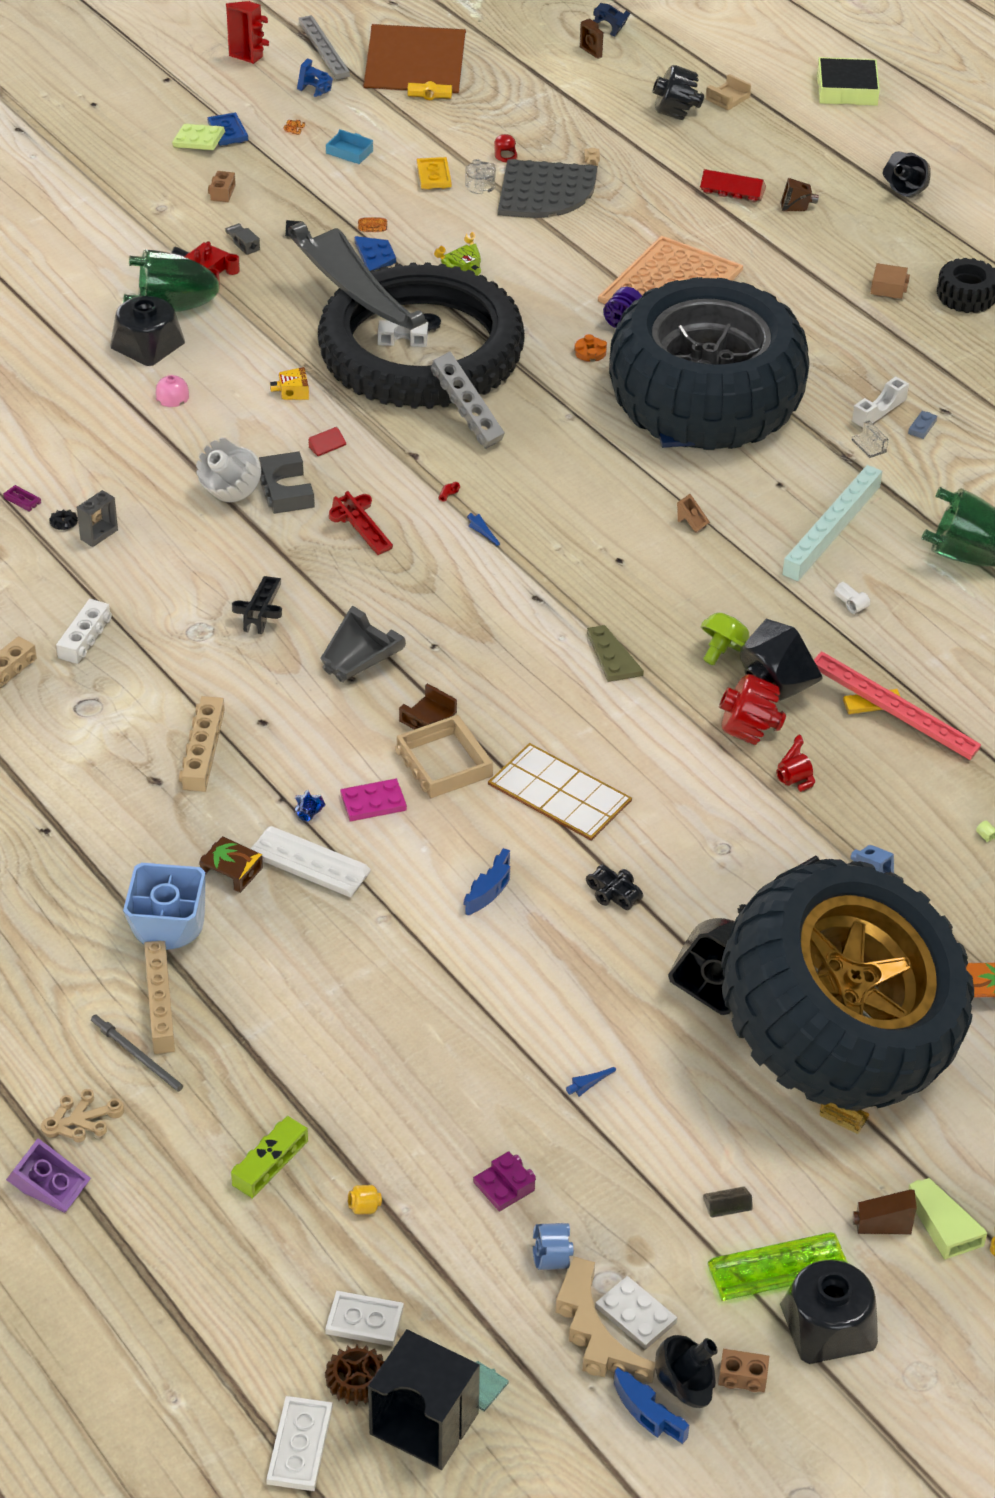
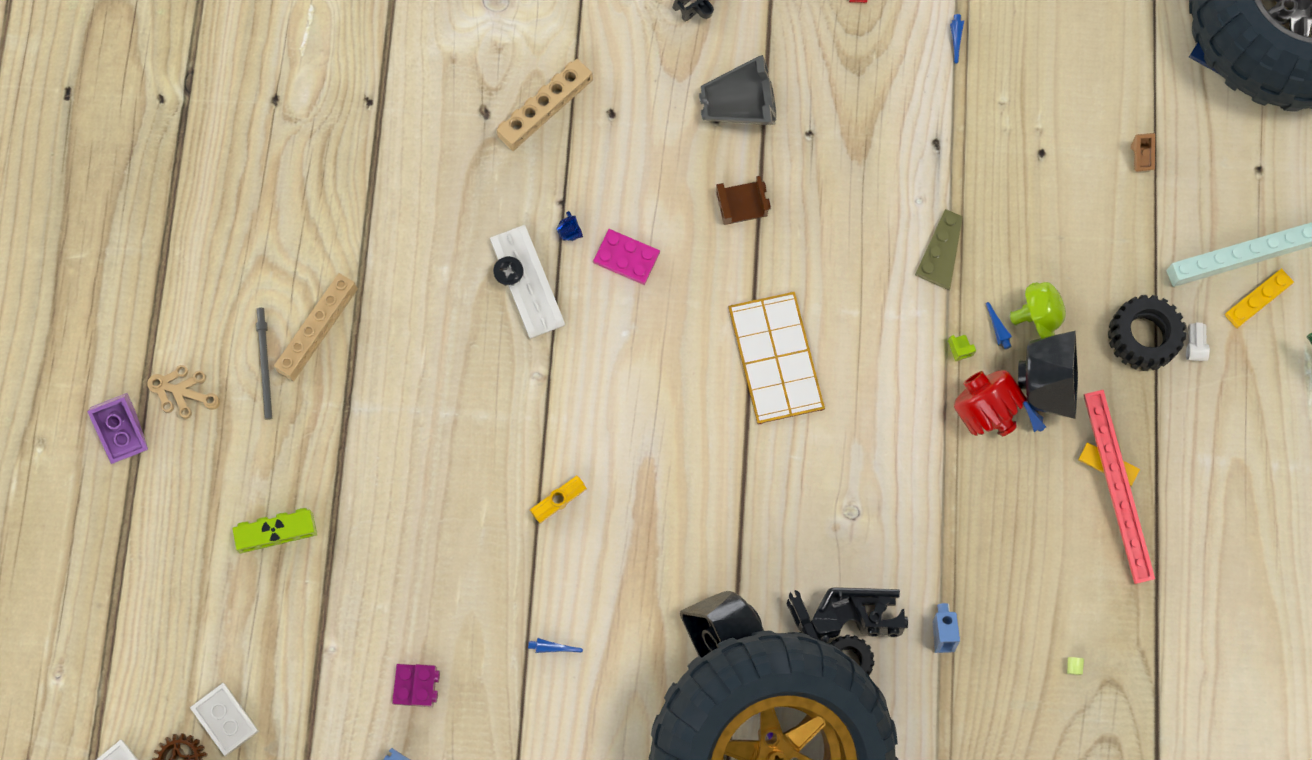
camera: 40 degrees right, 30 degrees up
(166, 903) = (367, 237): light blue piece -> none
(233, 861) = (467, 240): reddish brown panel -> none
(290, 852) = (503, 264): none -> black gear
(364, 1199) = (306, 621): yellow head -> none
(436, 731) = (722, 225): tan window -> none
(488, 980) = (568, 491): none -> yellow piece
(489, 885) = (631, 411): blue slope -> none
(614, 887) = (729, 486): black axle -> none
(691, 702) = (960, 347): none -> lime panel
(709, 674) = (1001, 332): none -> blue piece
(792, 703) = (1035, 418): none -> blue piece
(796, 767) = (977, 484): red piece -> none
(817, 595) = (1163, 316): none -> black tyre
(863, 551) = (1259, 298): none -> yellow plate

